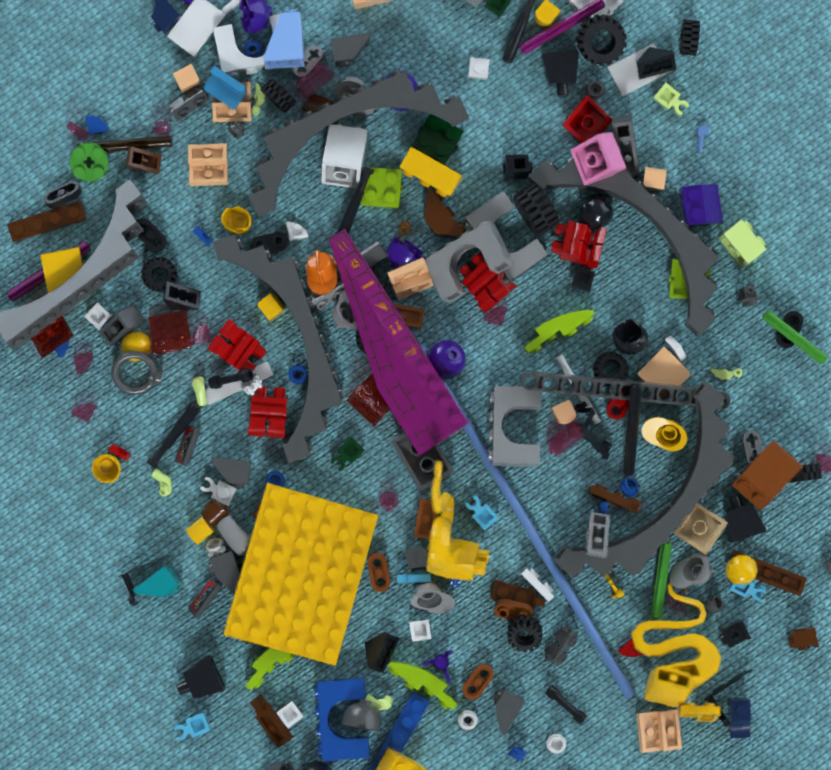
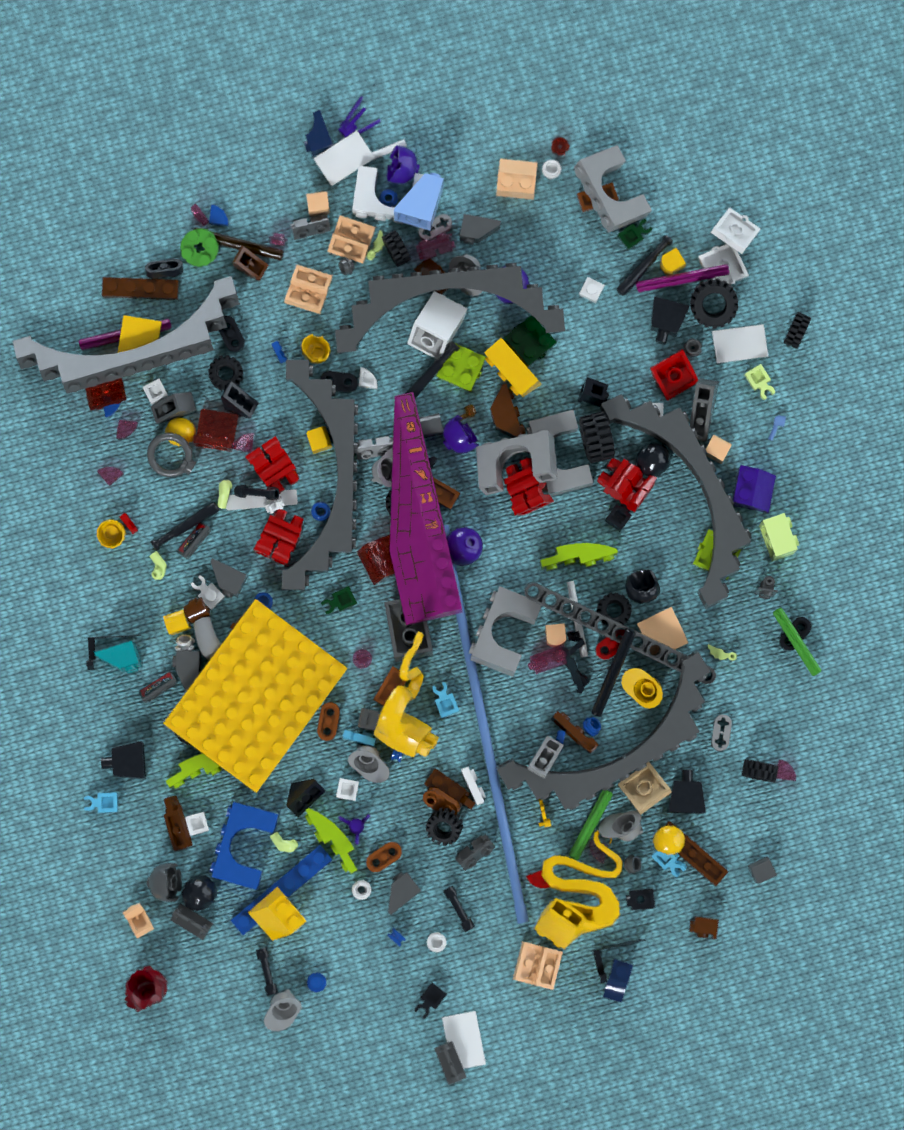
camera: 15 degrees right, 5 degrees down
(225, 88) = (349, 224): dark azure panel -> none
(321, 272) = (376, 425): orange piece -> none
(362, 716) = (263, 849): dark grey cylinder -> none
(410, 279) = (457, 460): light nougat slope -> none
(496, 315) = (525, 523): clear pink tile -> none
(598, 158) = (671, 409): bright pink slope -> none
(655, 62) = (757, 342): black slope -> none
(675, 347) = (682, 613): white tile -> none
(704, 713) = (586, 961): yellow plate -> none
(767, 475) = (724, 759): dark orange slope -> none

